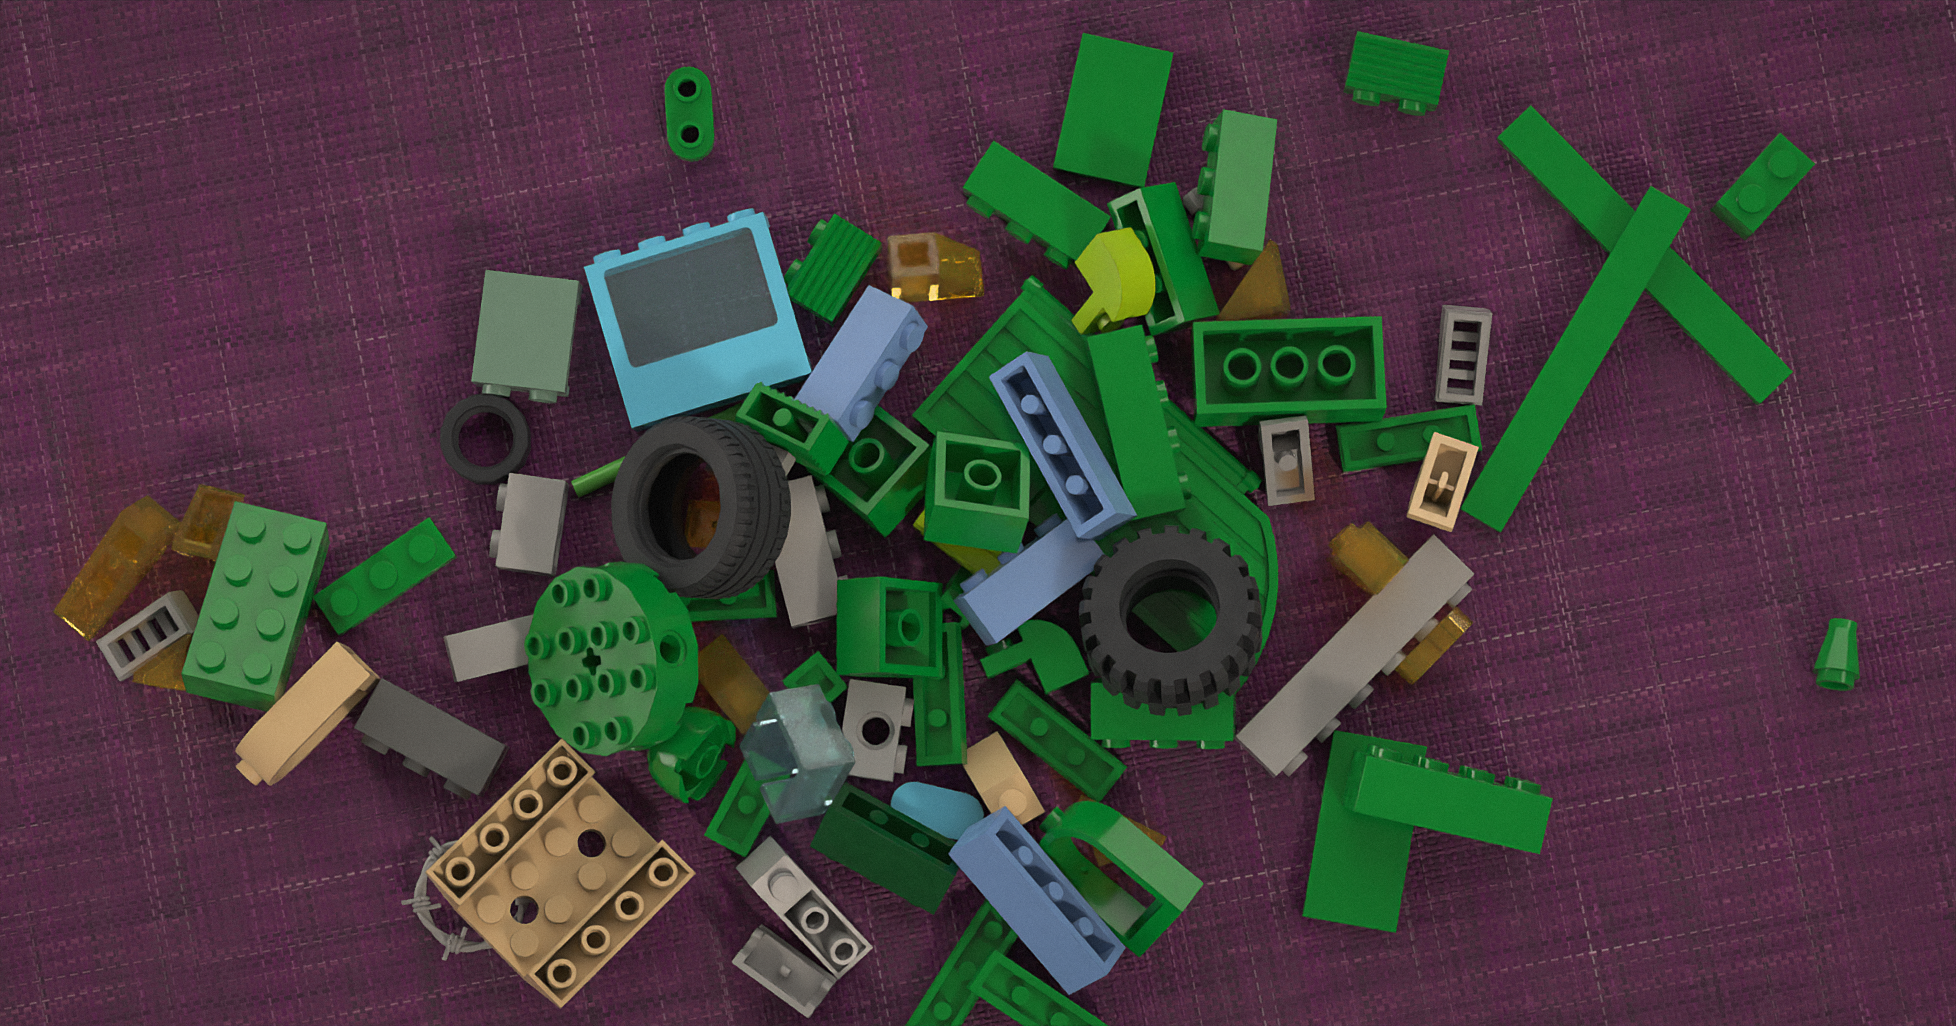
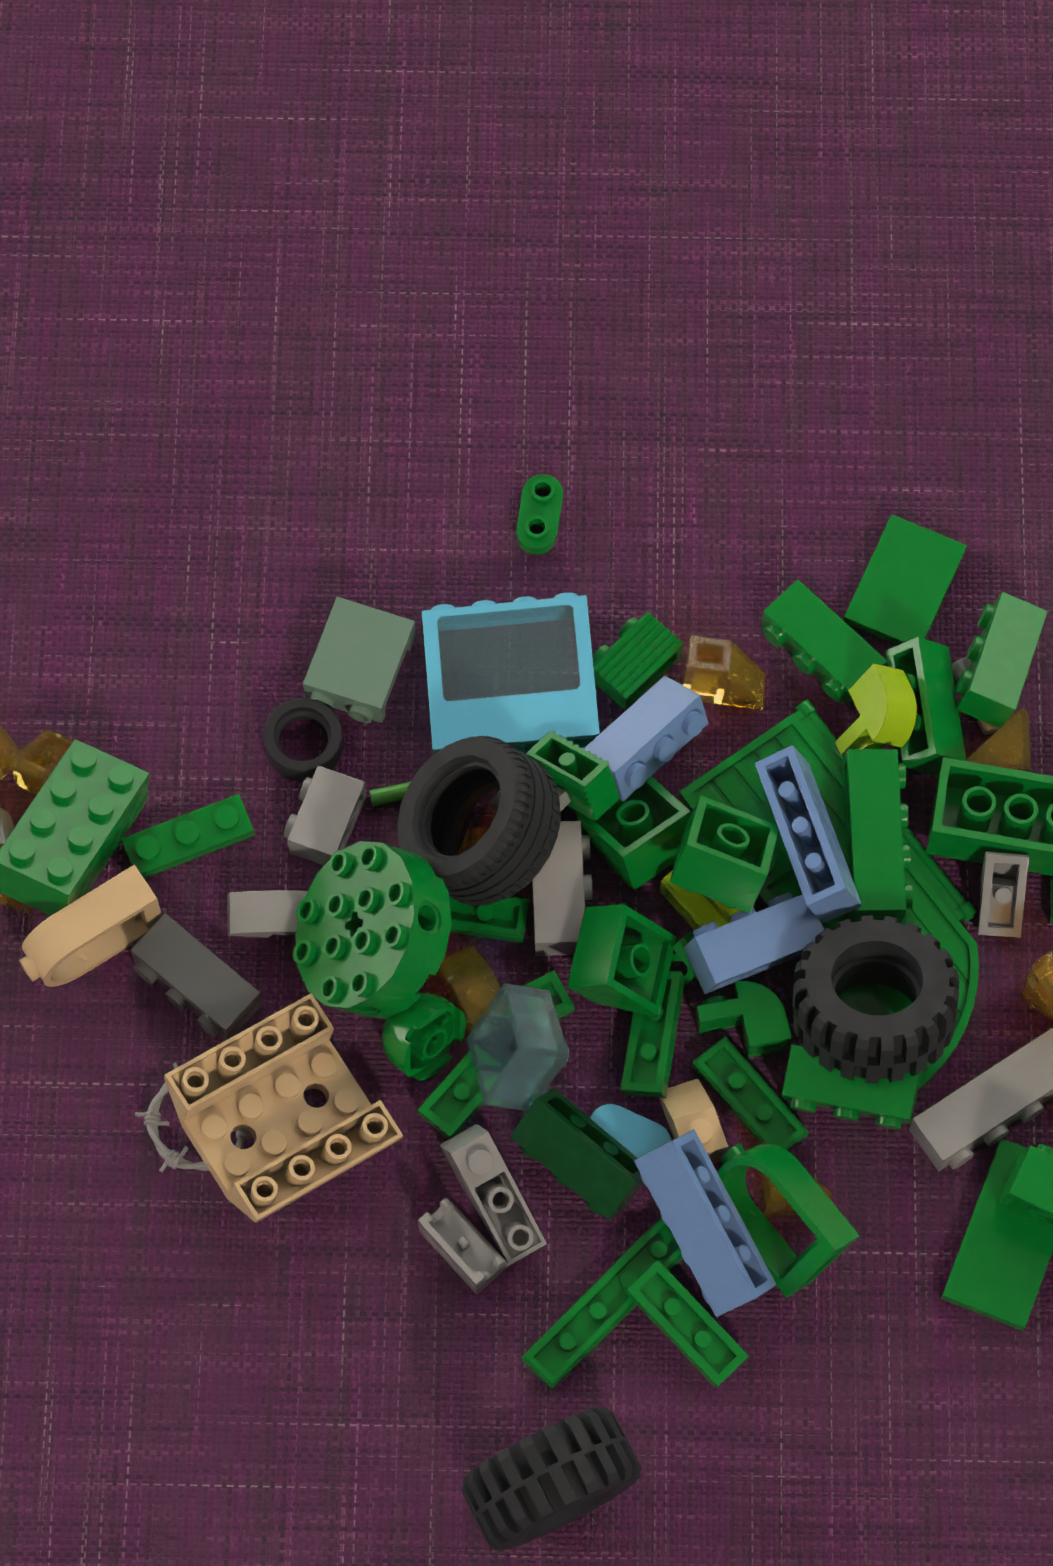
camera: 10 degrees right, 15 degrees down
(880, 701) = (591, 1027): light grey brick -> none

